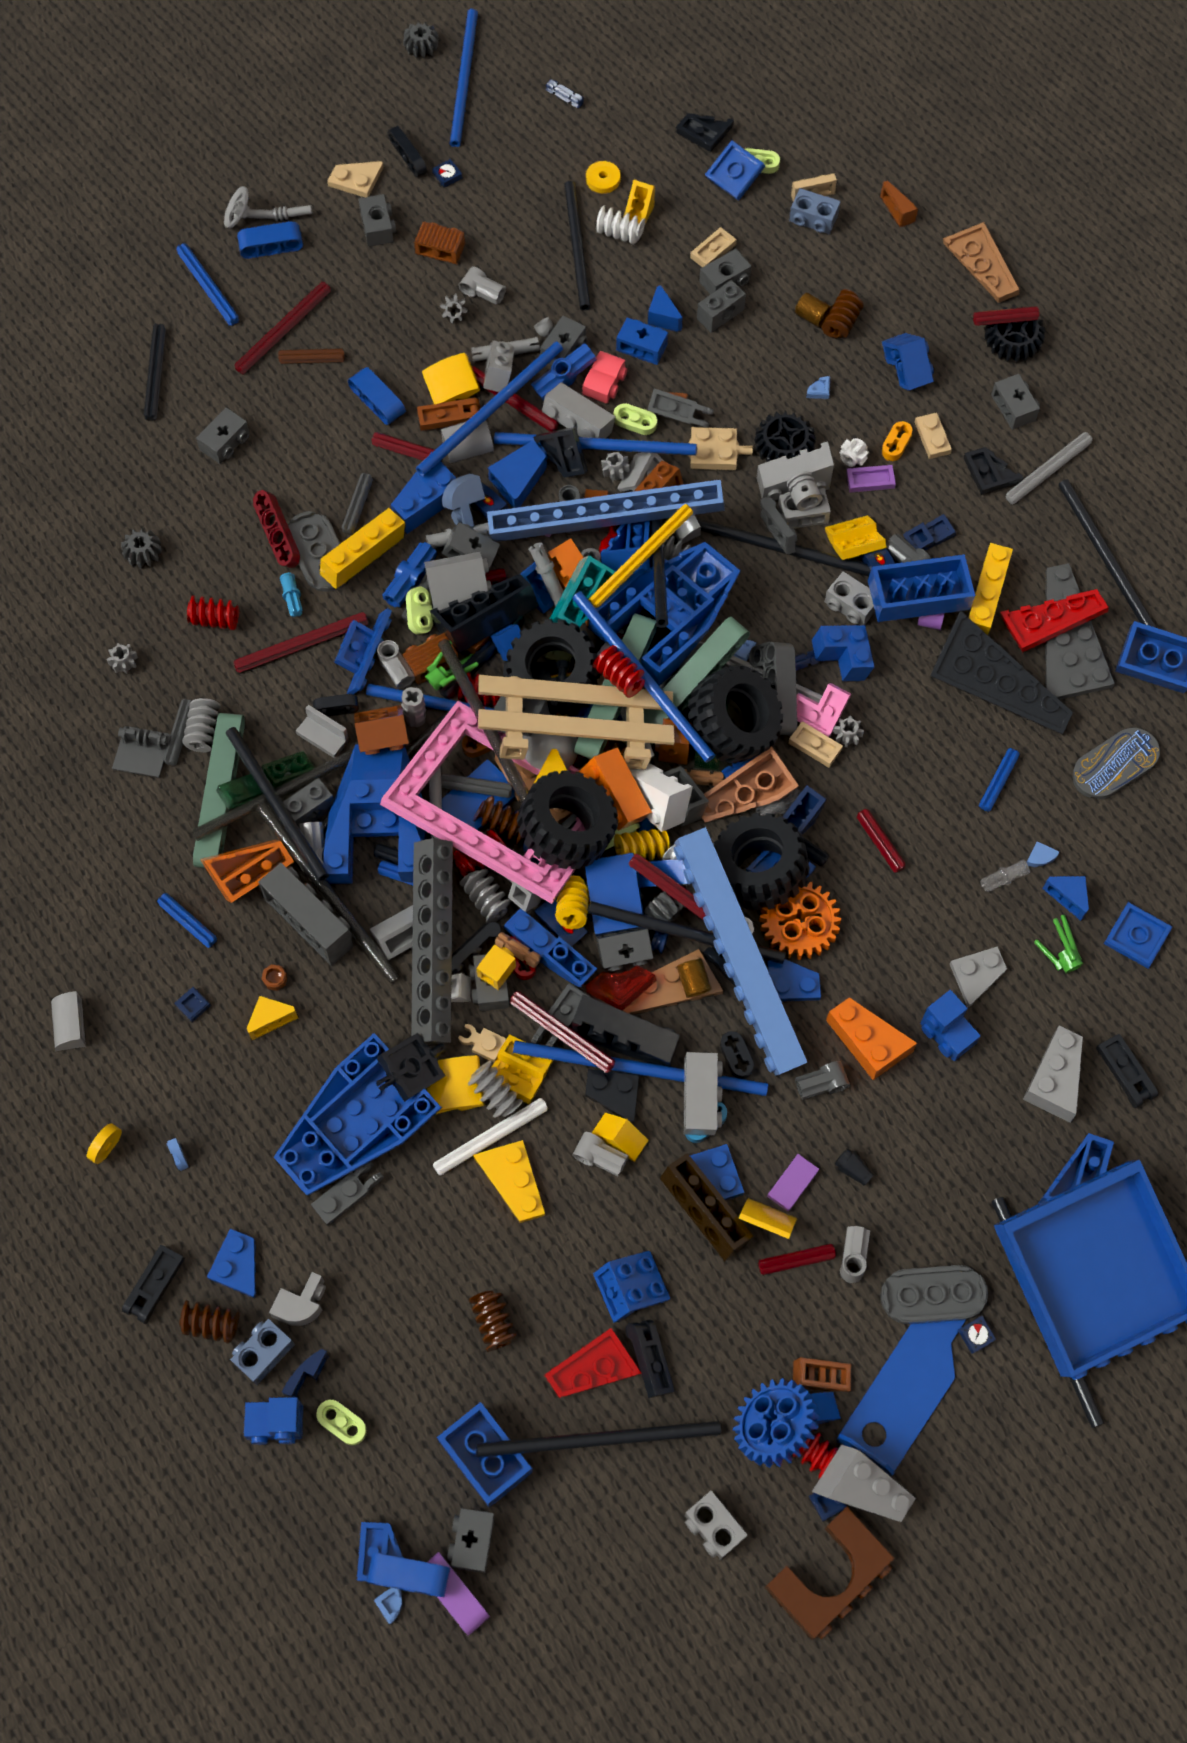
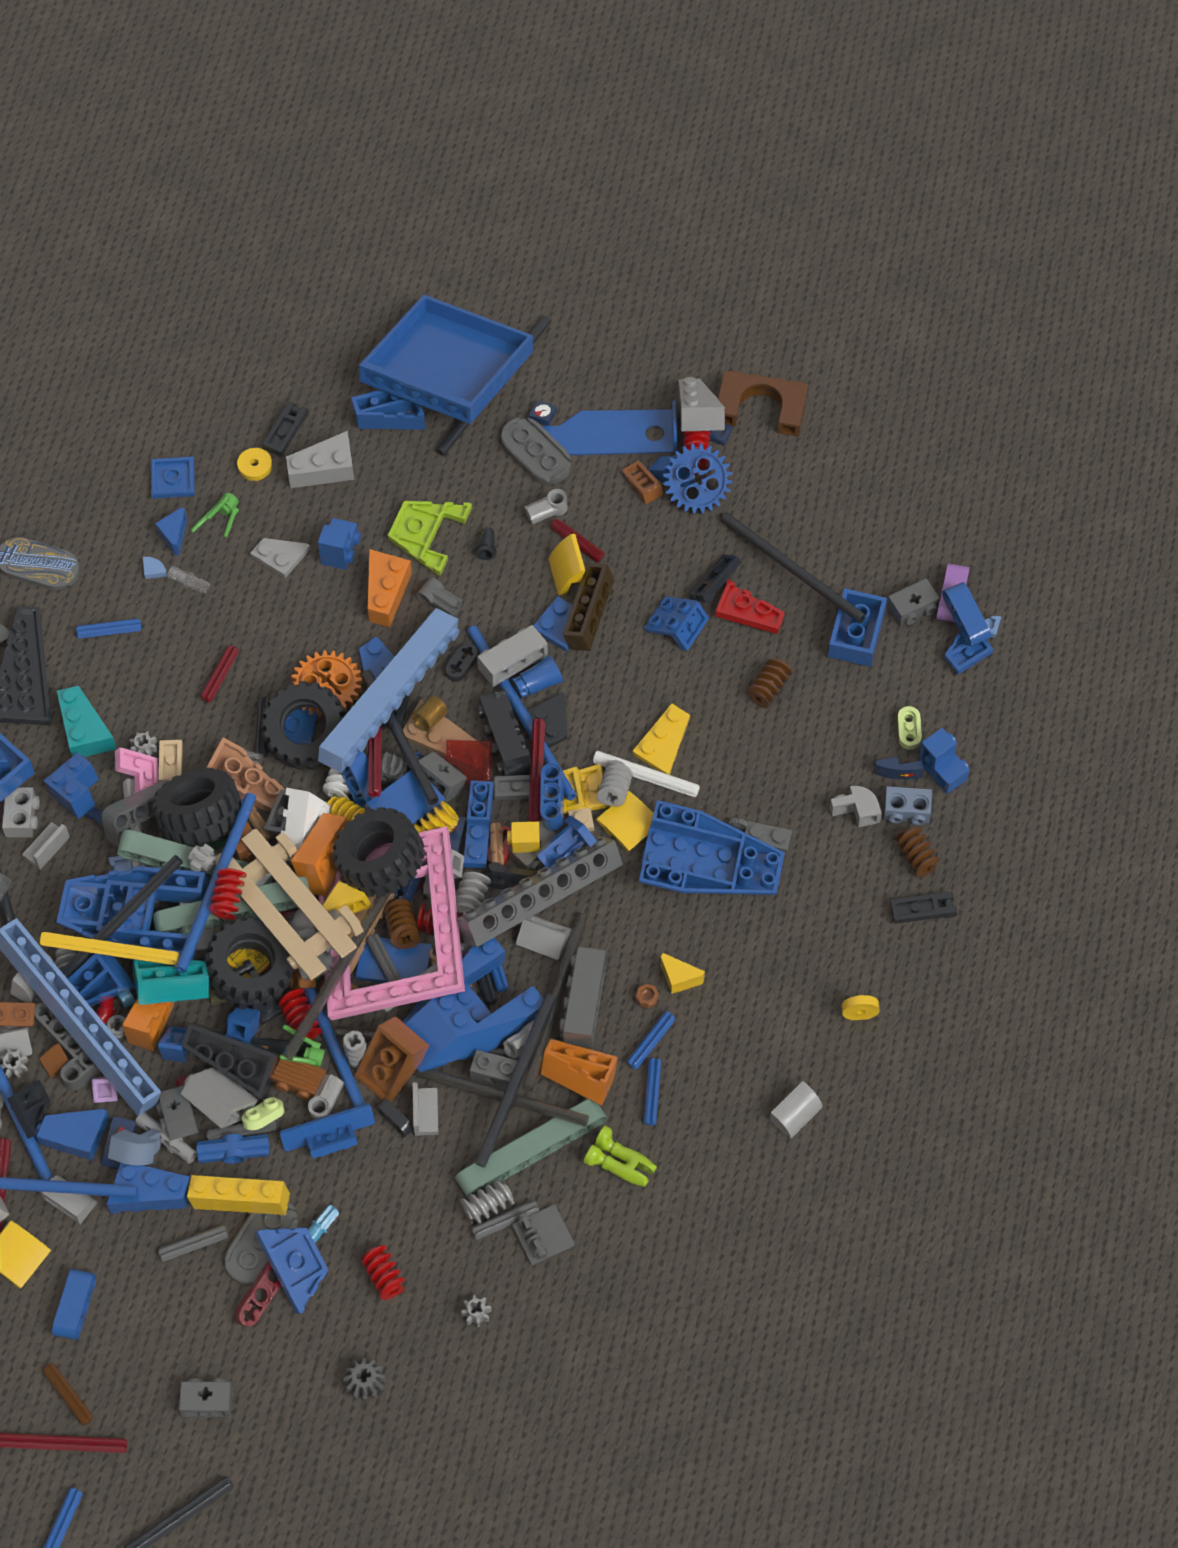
camera: 125 degrees left, 5 degrees down
(136, 847) = (630, 1157): none -> lime piece
(178, 1155) = (825, 961): medium blue tile -> none
(192, 1004) = (711, 1038): dark blue tile -> none
(233, 952) = (650, 1040): none -> blue axle
(236, 1264) = (865, 868): blue wing -> none
(273, 552) = (294, 1262): none -> blue wing
(278, 772) = (482, 1111): clear green slope -> none
(297, 643) = (356, 1188): dark red axle -> none
(401, 446) = (110, 1246): dark red axle -> none
(411, 1066) = (644, 840): black plate -> none
(447, 413) = (51, 1233): dark orange plate -> none
(463, 1009) = (565, 842): none -> blue bracket
(514, 1007) = (554, 805): none -> blue beam
(545, 568) = (162, 1030): light grey pin -> none
(595, 1152) = (604, 700): light grey piece -> none
(621, 1135) = (579, 697): yellow slope -> none
(664, 1108) = (538, 678): none -> blue plant
(674, 679) = (202, 858): none -> light grey gear
(721, 1521) = (785, 479): light grey brick -> none
(793, 1182) = (526, 574): medium lavender tile -> none
(805, 603) = (46, 845): none -> light grey panel
(805, 809) = (240, 729): dark blue slope -> none
(907, 695) = (83, 725): none -> teal wedge
(920, 1116) = (418, 525): none -> lime wing
(1105, 1006) = (251, 456): none -> yellow piece

